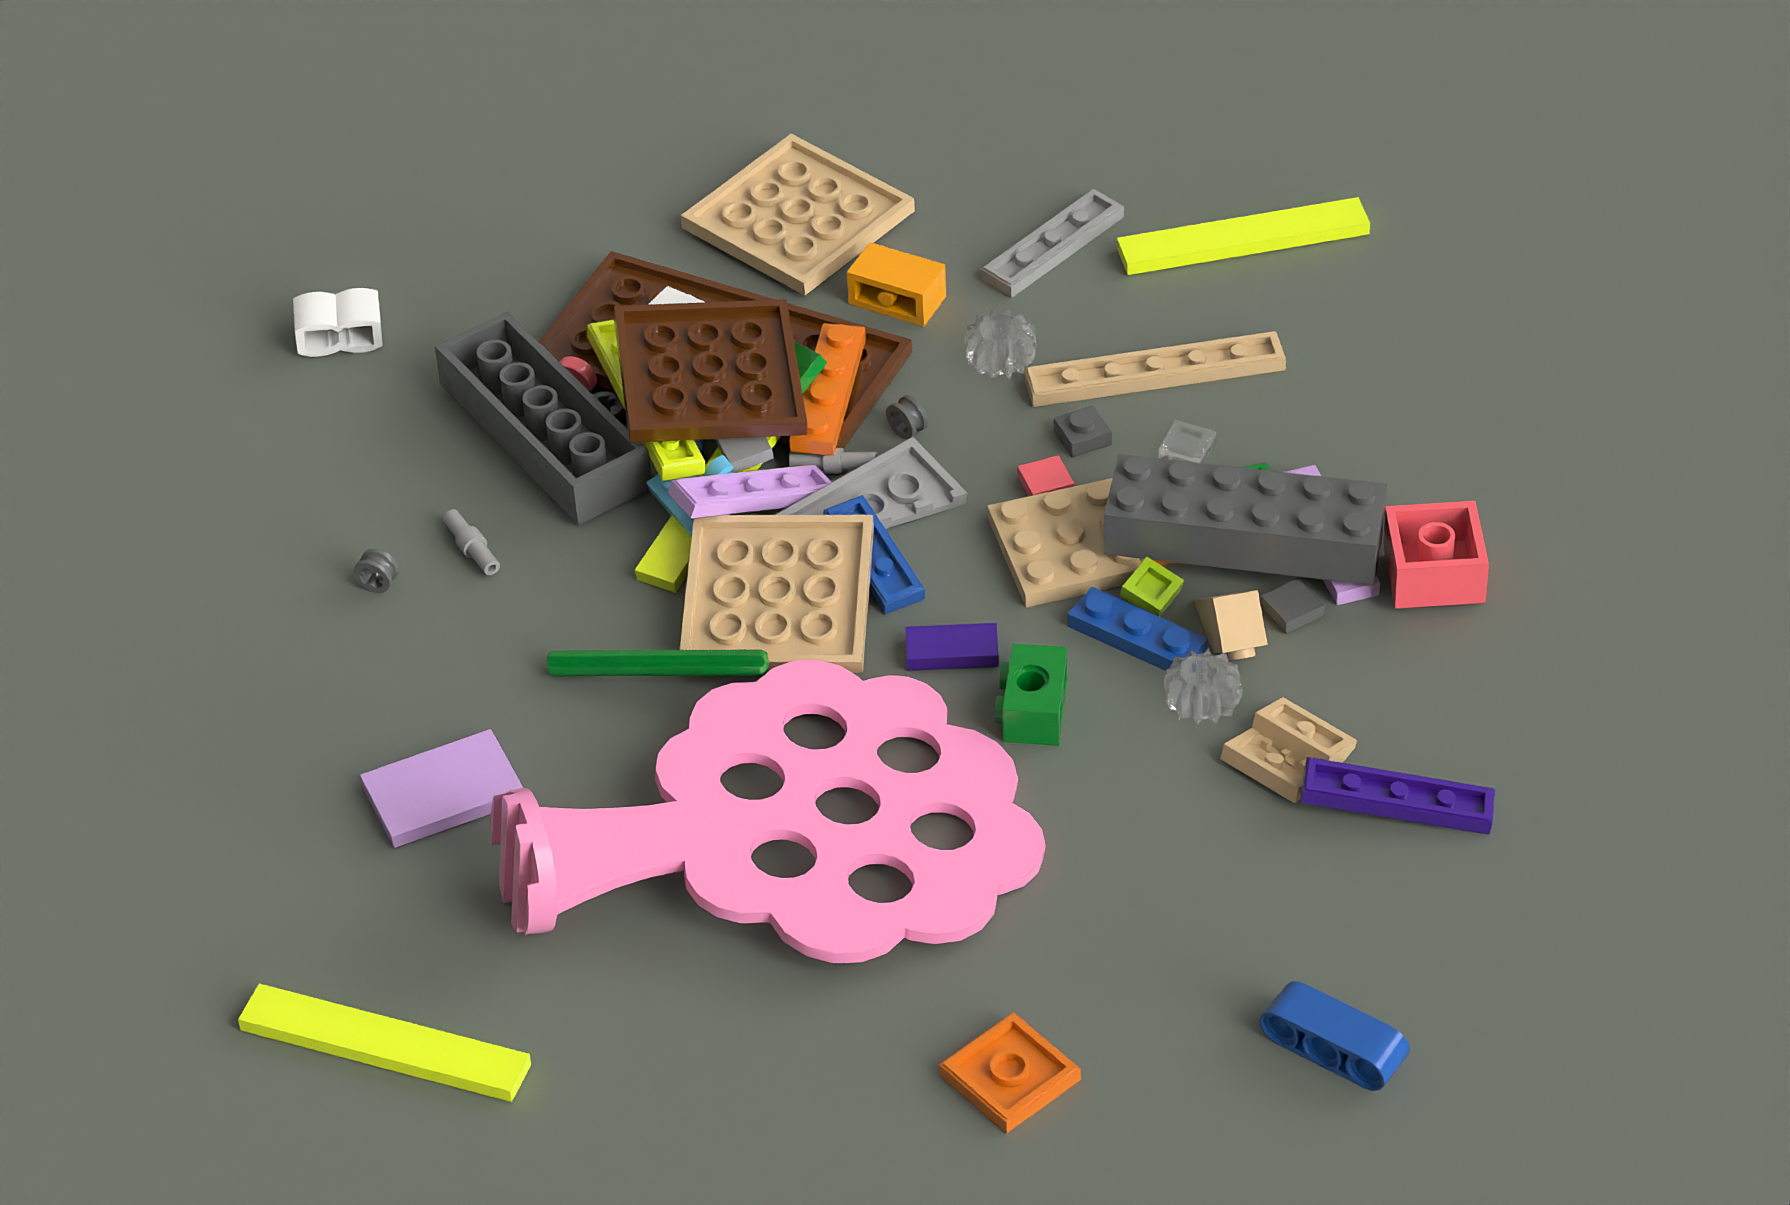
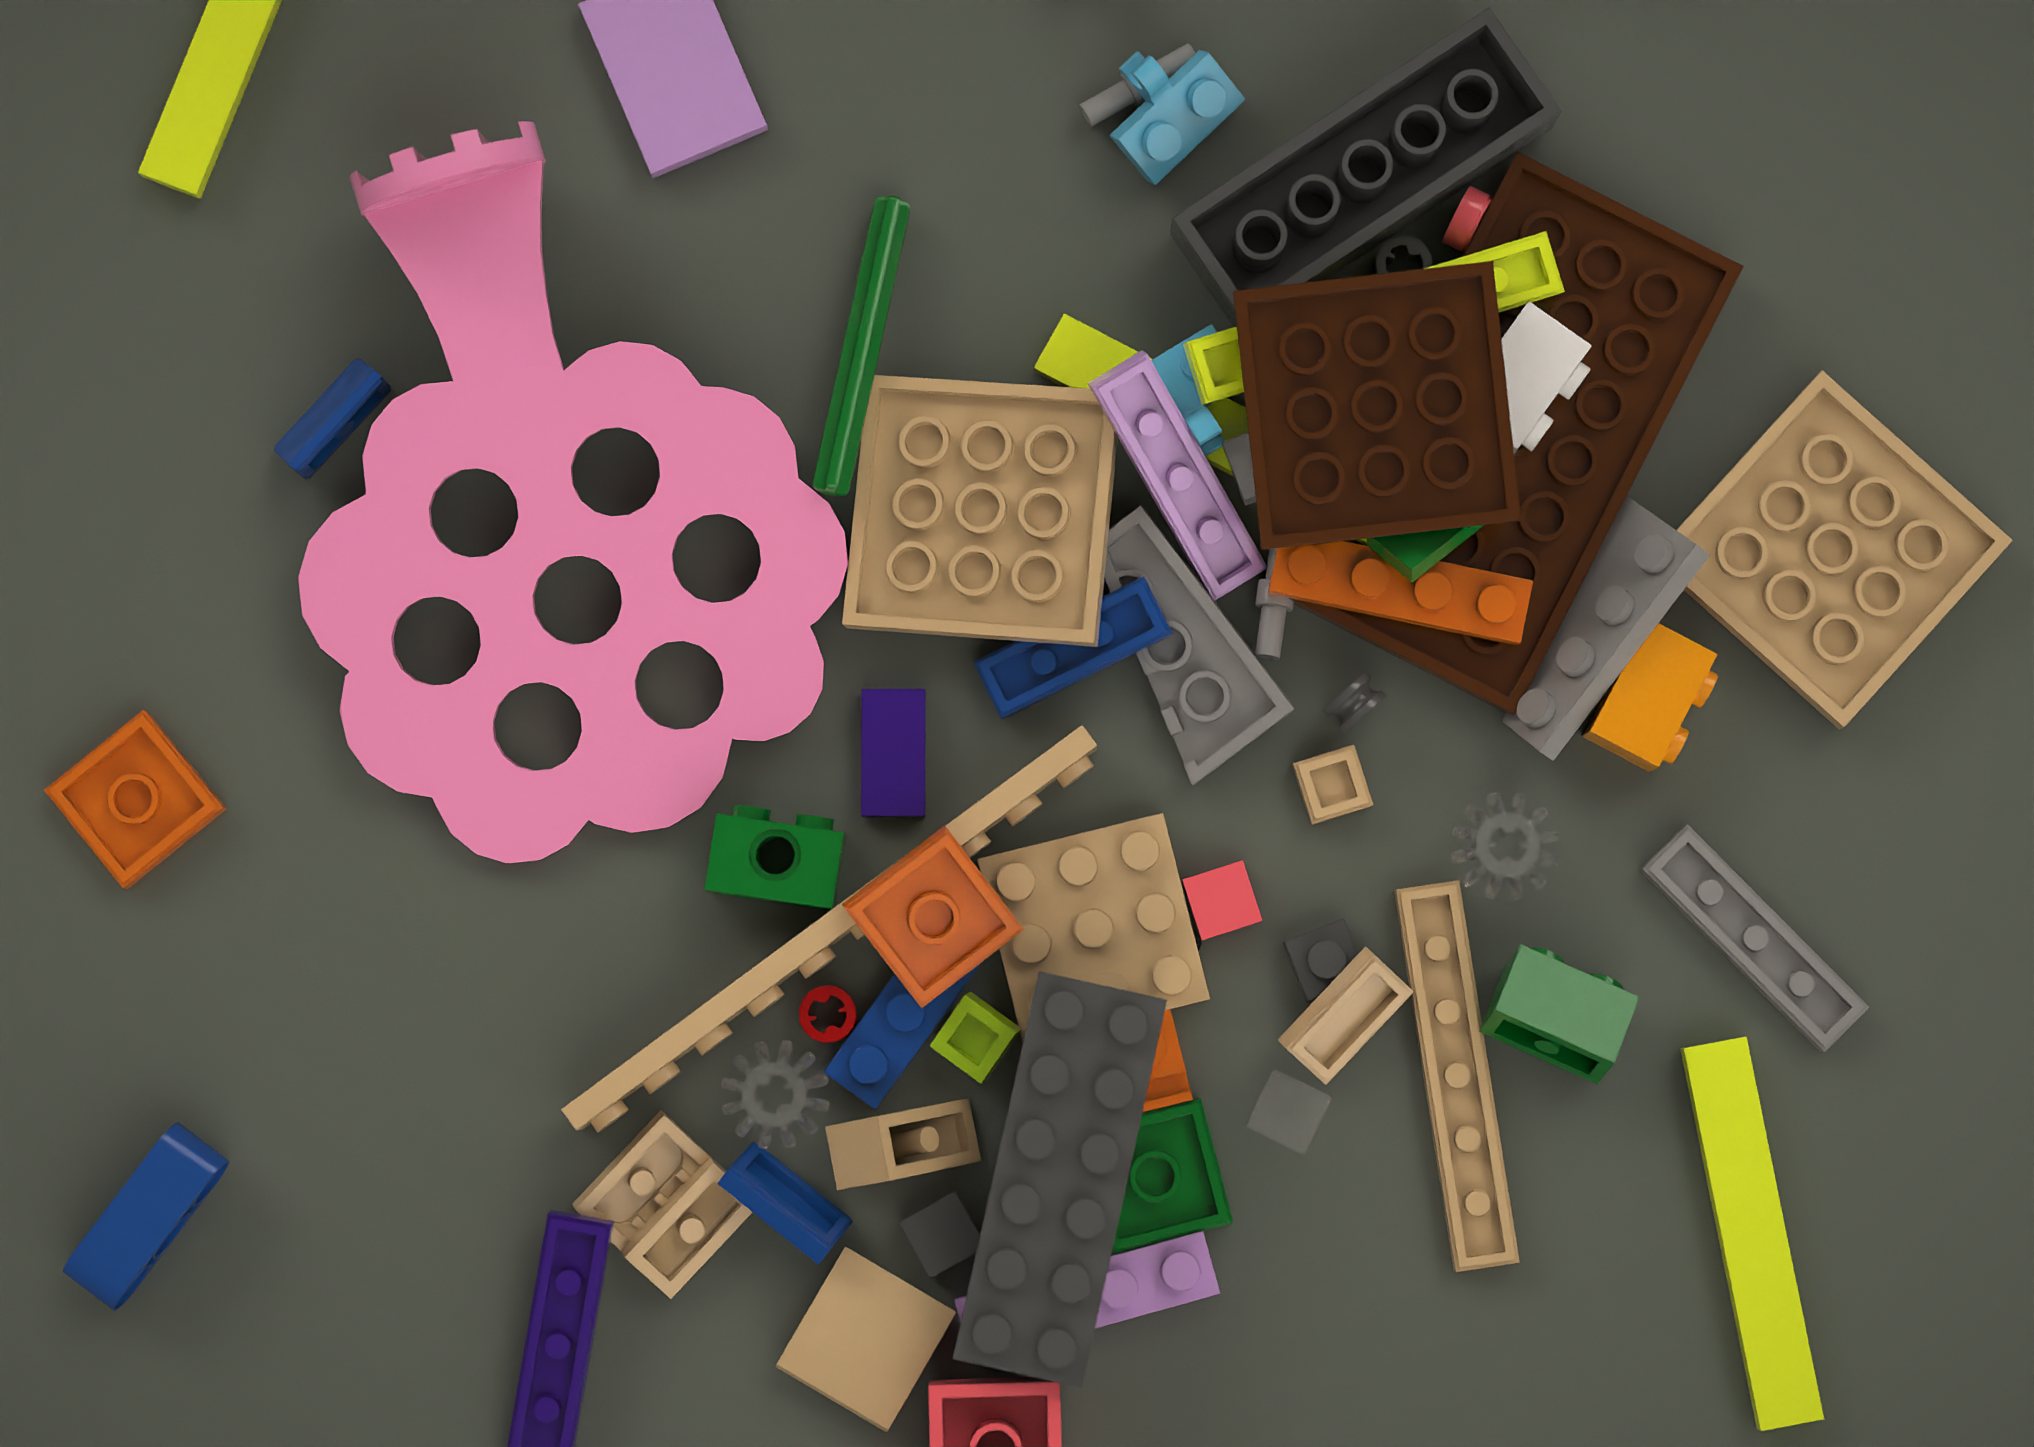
camera: 90 degrees right, 40 degrees up
(489, 514) = (1175, 111): none -> medium azure plate
(707, 962) = (332, 418): none -> blue slope
(835, 287) = (1615, 610): none -> light grey wing
(962, 433) = (1332, 784): none -> tan tile
(1069, 594) = (932, 916): none -> orange tile
(1087, 668) = (811, 948): none -> tan plate
(1110, 310) = (1559, 1013): none -> green brick
(1120, 411) = (1345, 1015): none -> tan tile
(1142, 659) = (823, 995): none -> red bush
(1278, 676) = (785, 1202): none -> blue tile
(1372, 636) = (865, 1339): none -> tan slope

